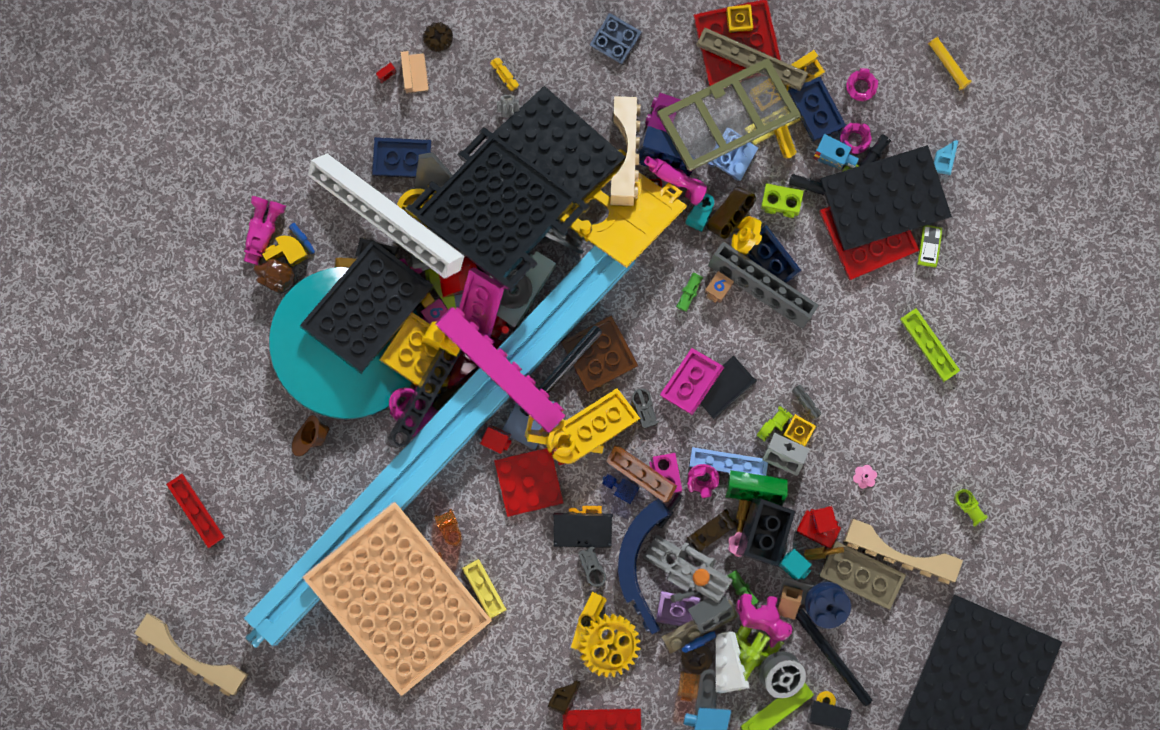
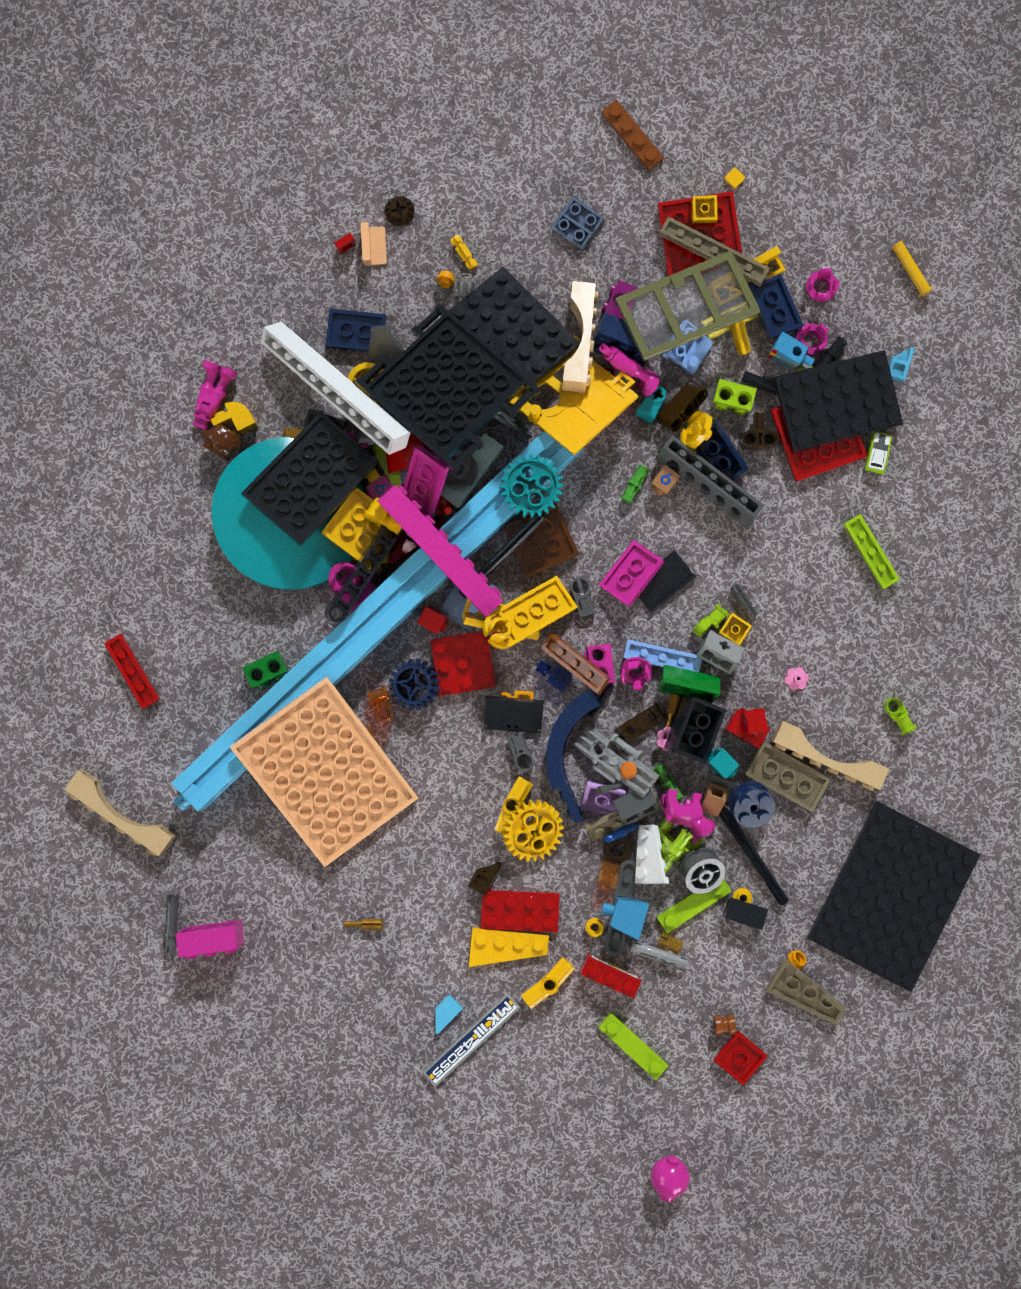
camera: 10 degrees right, 5 degrees up
(301, 237) = (252, 406): blue piece -> none
(309, 435) = (249, 603): reddish brown piece -> none
(328, 496) = (264, 665): none -> green brick
(481, 497) = (414, 691): none -> dark blue gear
(484, 589) = (412, 766): light yellow tile -> none
(488, 101) = (445, 279): none -> light orange plate
(578, 316) = (540, 470): none -> teal gear
(808, 235) = (758, 434): none -> dark brown beam
(821, 553) = (748, 752): pearl gold axle -> none

